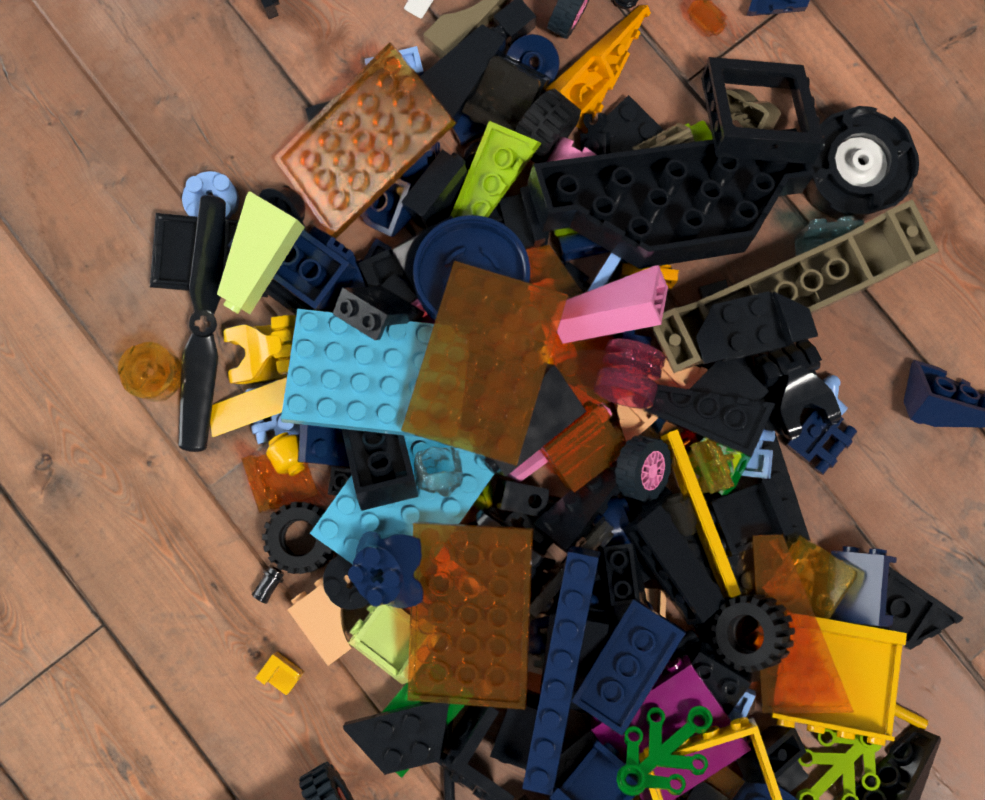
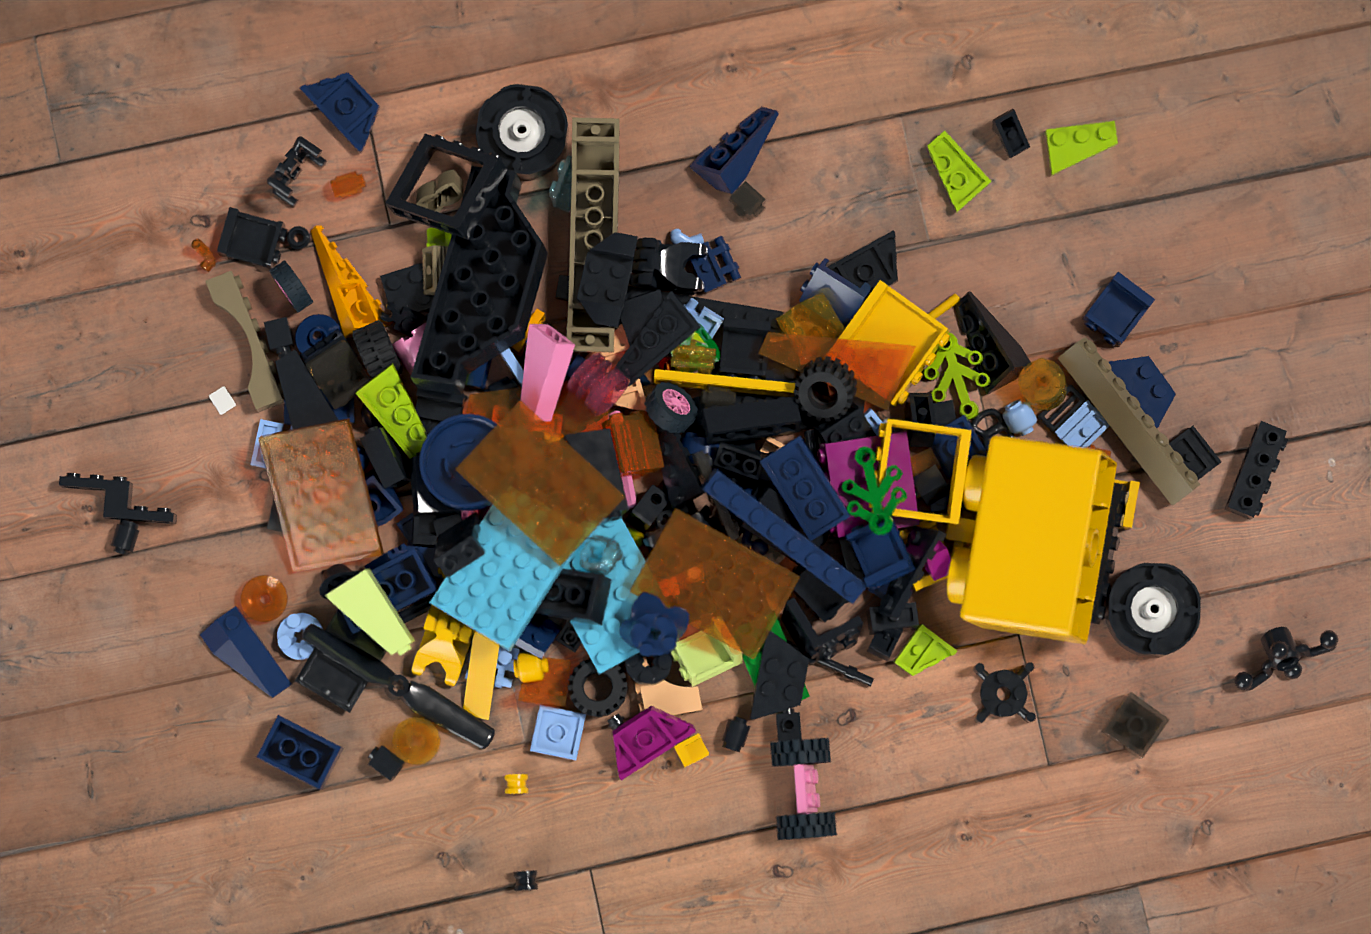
camera: 65 degrees left, 0 degrees up
(55, 562) = (525, 880): none -> black wheel
(82, 255) = (300, 752): none -> dark blue brick
(111, 348) = (385, 762): none -> black brick
(155, 500) = (516, 783): none -> yellow wheel
(169, 146) = (241, 648): none -> dark blue wedge
(222, 132) = (252, 595): none -> clear orange dish
(231, 519) = (558, 732): none -> light blue plate
(268, 620) = (647, 738): none -> magenta wing
(320, 715) = (735, 734): none -> black brick
(355, 771) = (788, 725): none -> black brick
(909, 441) = (747, 201): none -> clear smoke brick

